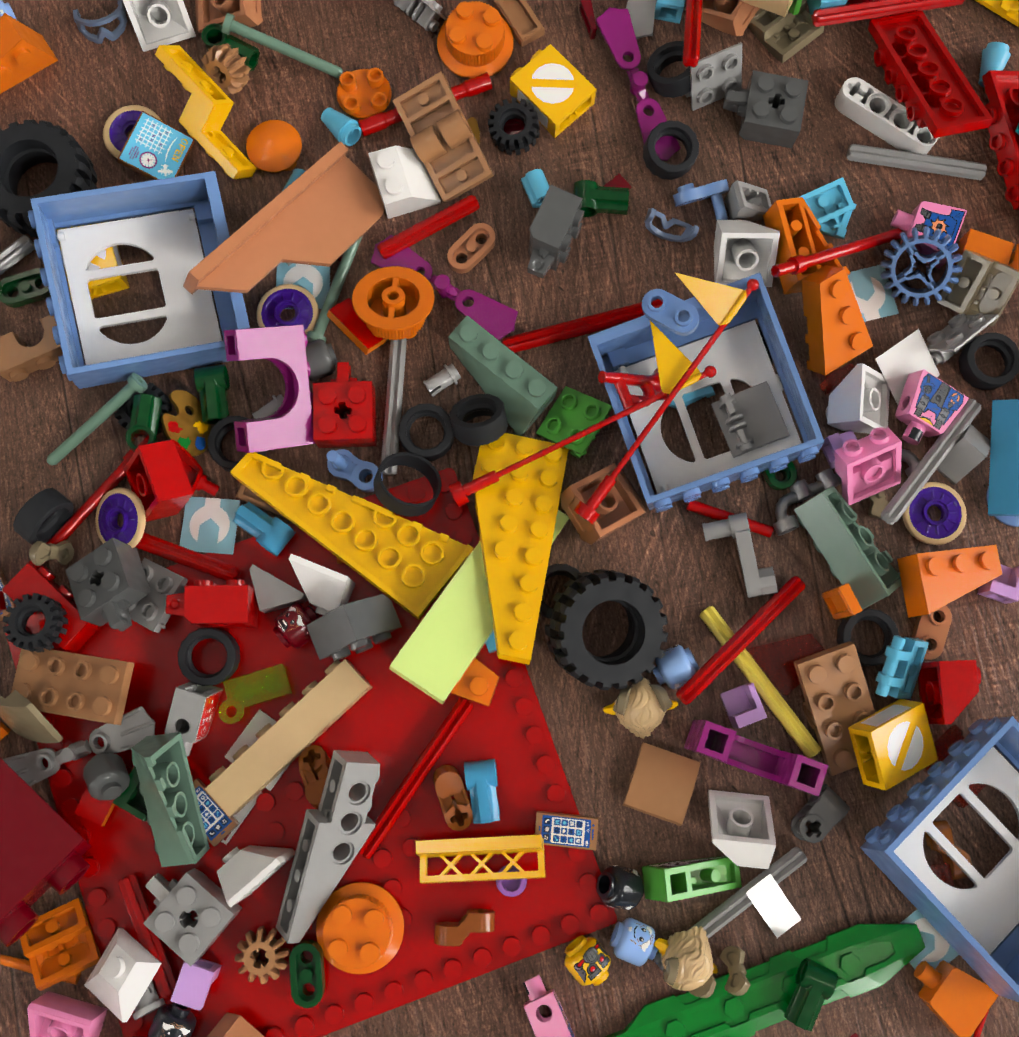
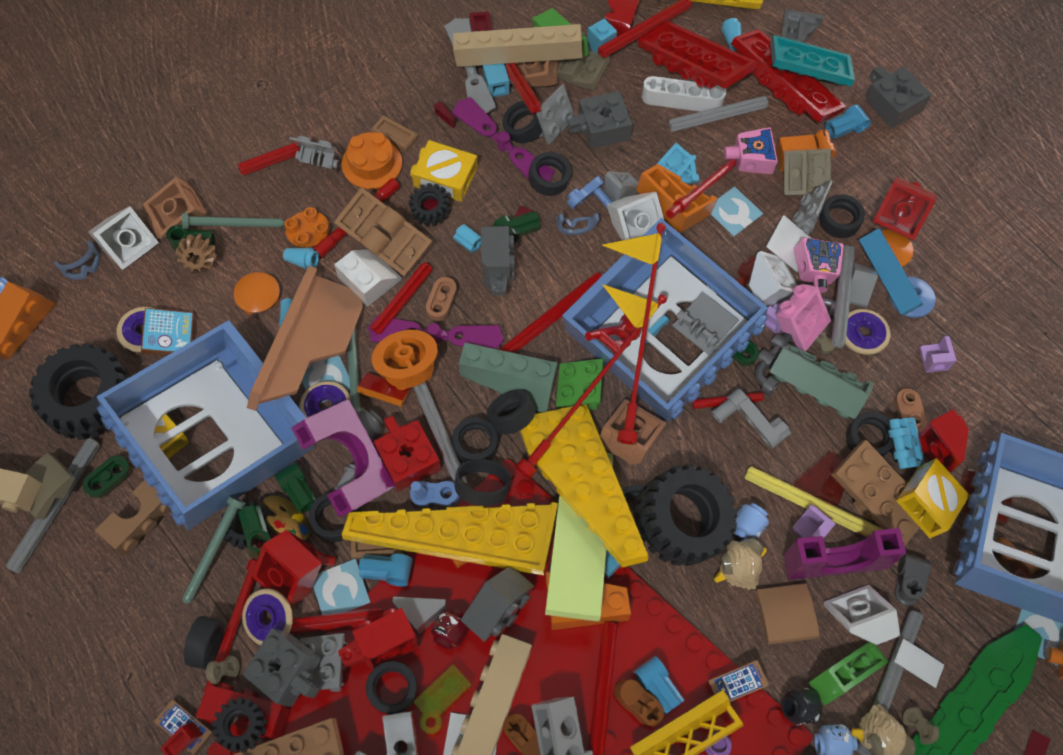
camera: 25 degrees left, 15 degrees down
(205, 111) = (194, 288): yellow bracket -> none
(322, 585) = (454, 584): white slope -> none
(442, 379) = (467, 399): light grey pin -> none
(668, 313) = (613, 271): medium blue plate -> none
(740, 640) = (784, 480): red axle -> none
(813, 986) = (984, 704): dark green piece -> none
(833, 320) = (724, 232): orange wedge -> none
(841, 602) = (839, 417): orange tile -> none
(933, 258) = (777, 185): medium blue gear -> none
(943, 576) = (897, 366): orange wedge -> none

